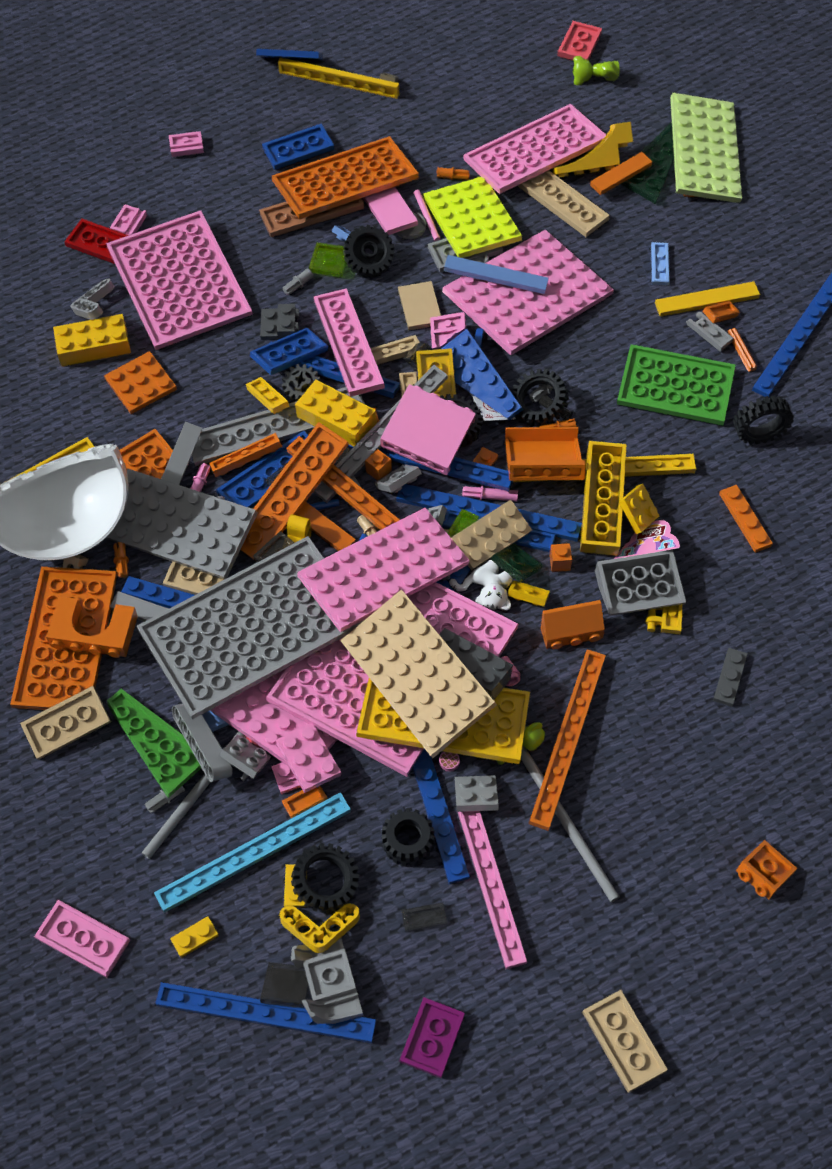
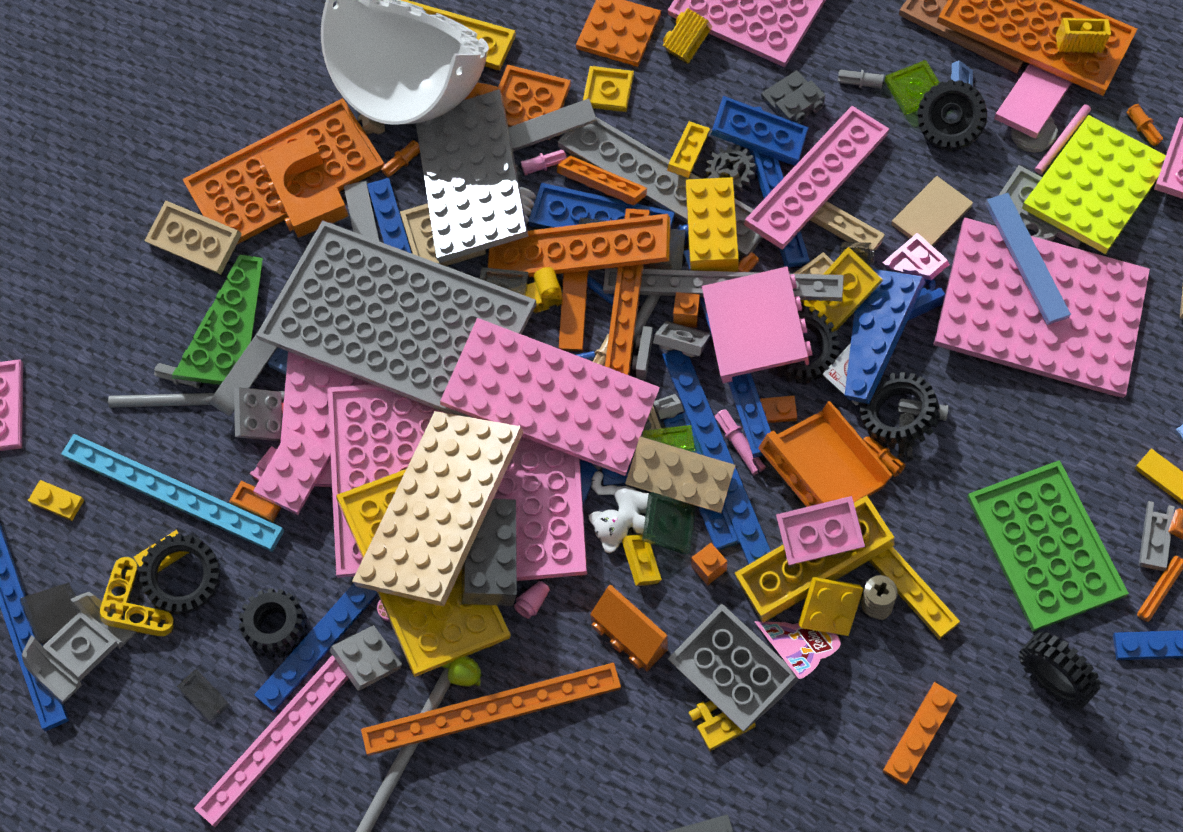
camera: 60 degrees right, 5 degrees up
(177, 412) = (608, 88): none -> yellow tile
(184, 345) = (687, 35): none -> yellow brick
(377, 156) = (1083, 35): none -> yellow brick
(388, 504) = (644, 344): none -> light grey plate
(432, 1037) = (81, 784): magenta plate -> none
(595, 476) = (820, 530): none -> bright pink plate
(653, 479) = (879, 597): none -> dark tan piece

